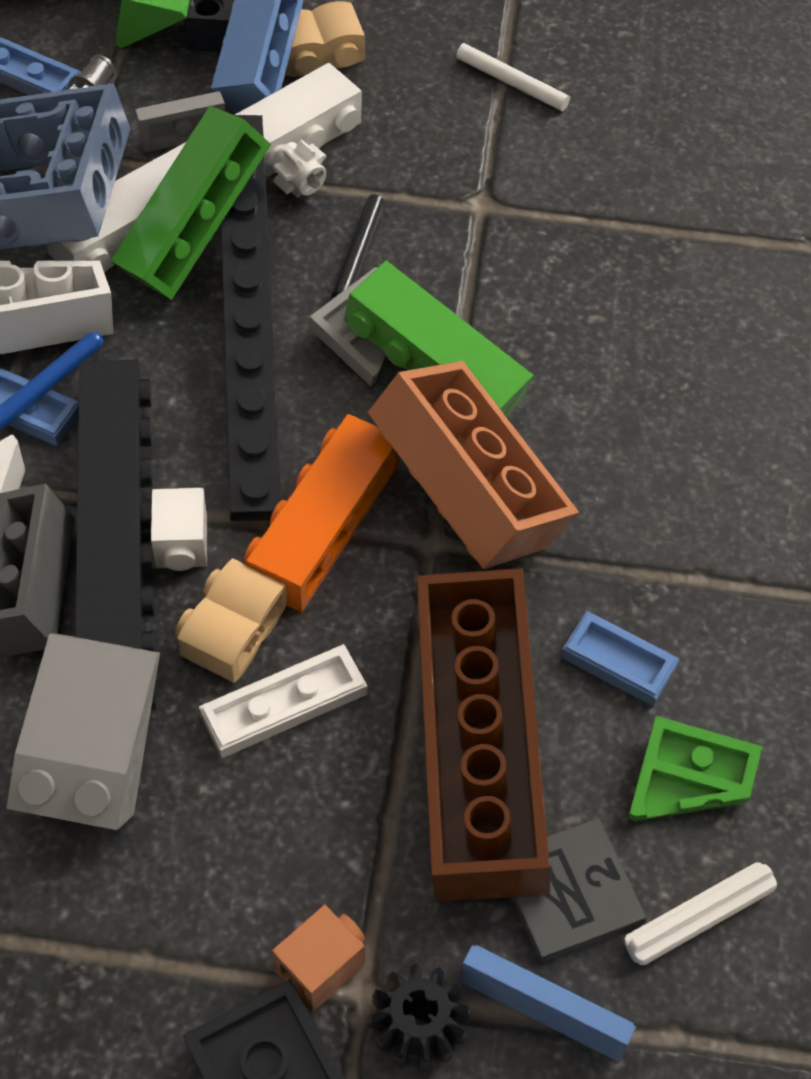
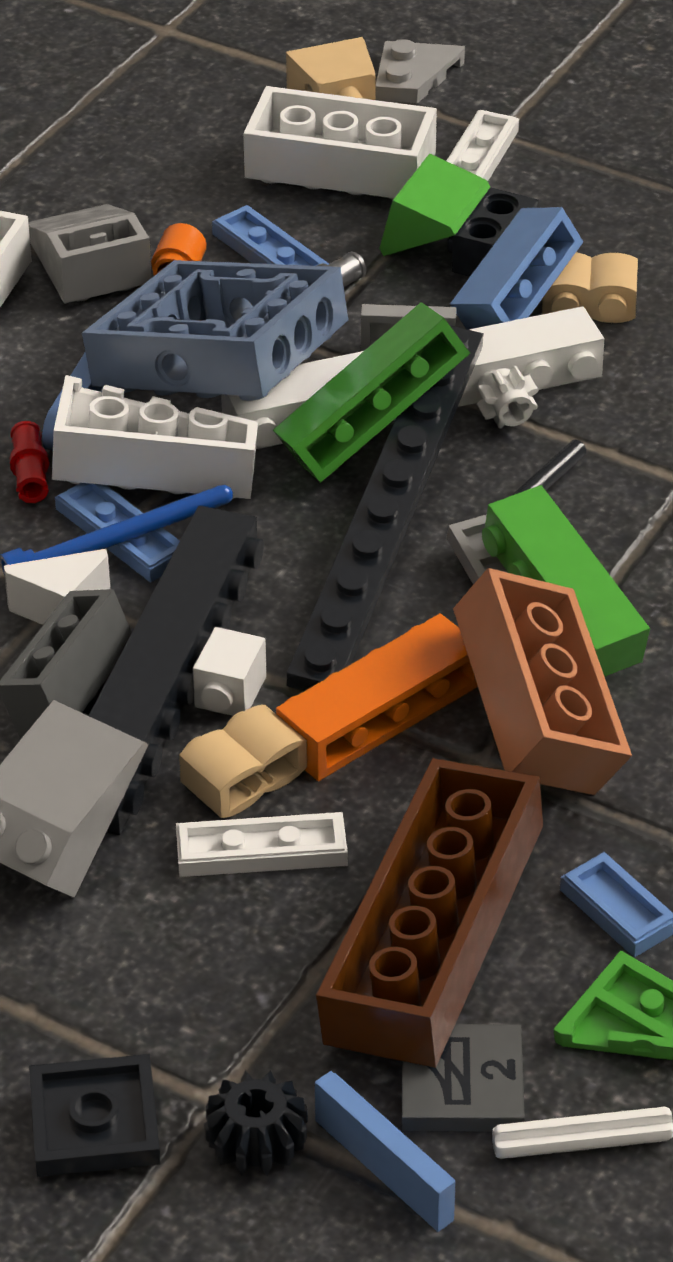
camera: 25 degrees right, 15 degrees down
(320, 956) = (187, 1048): nougat brick -> none

